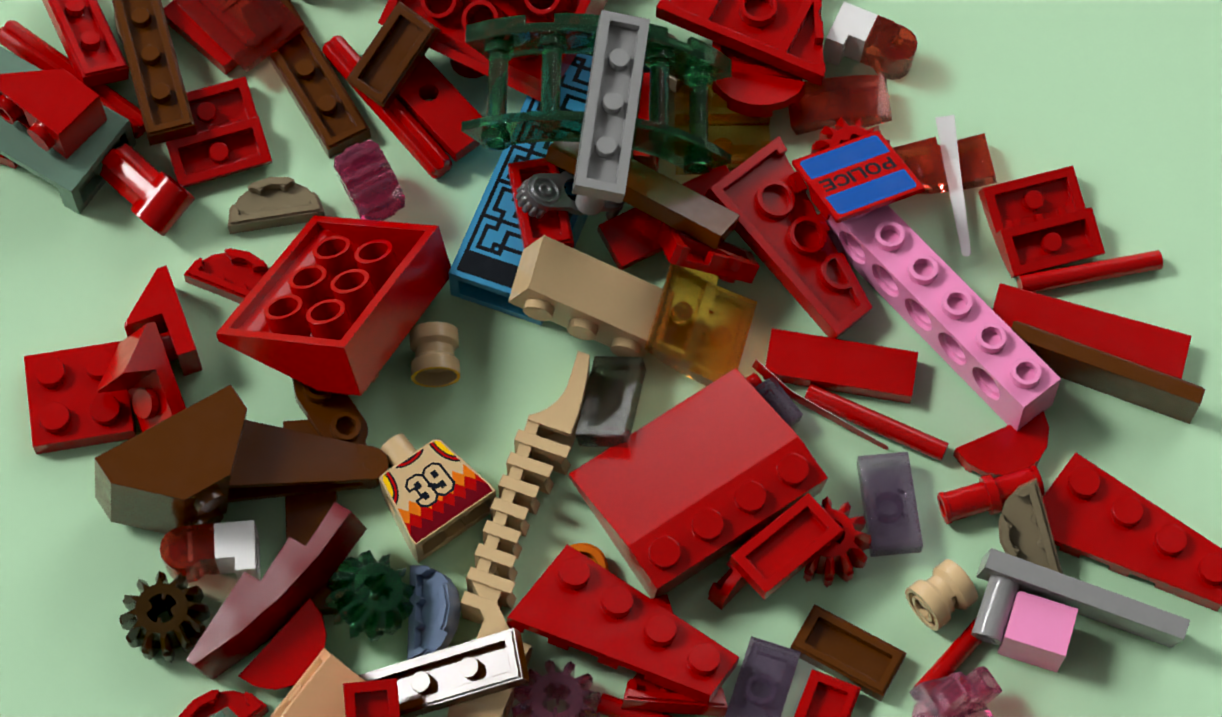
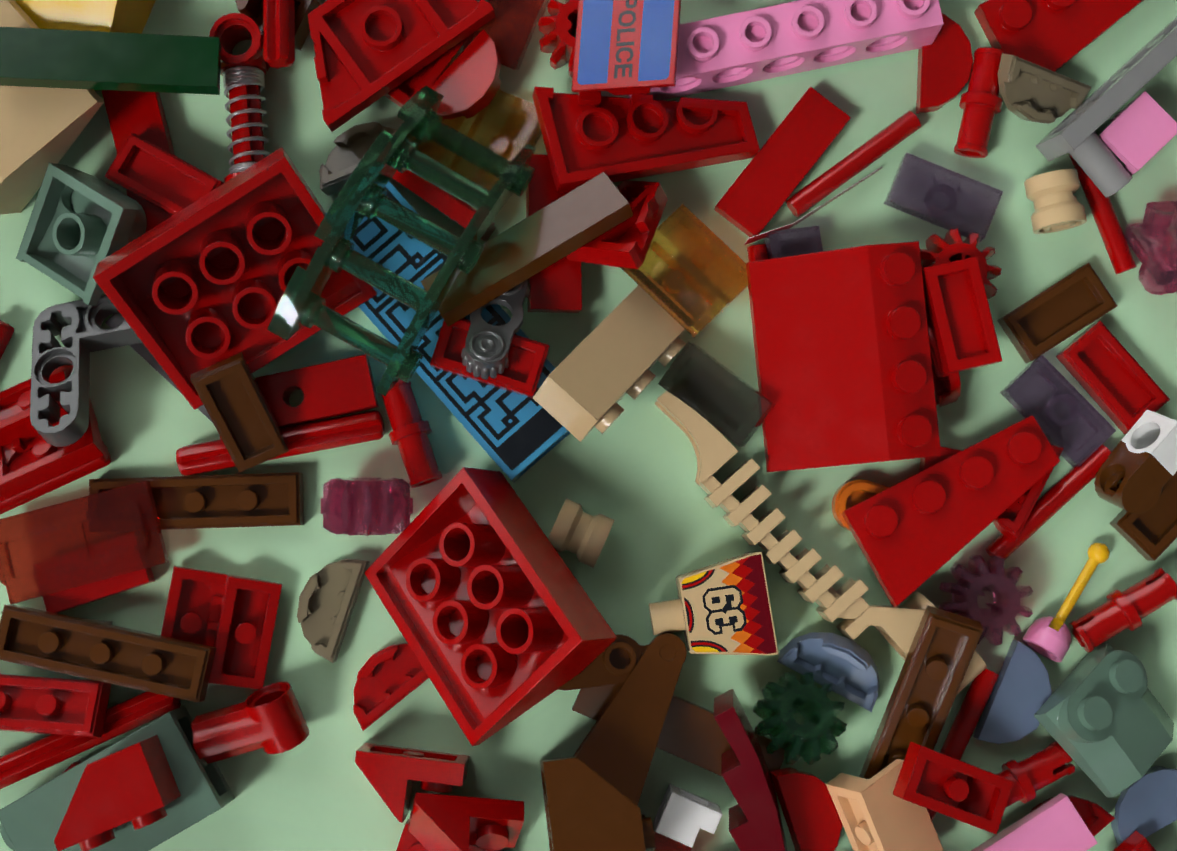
camera: 60 degrees left, 20 degrees up
(448, 191) = (411, 435): none -> red pin
(610, 111) = (455, 235): light grey piece -> none

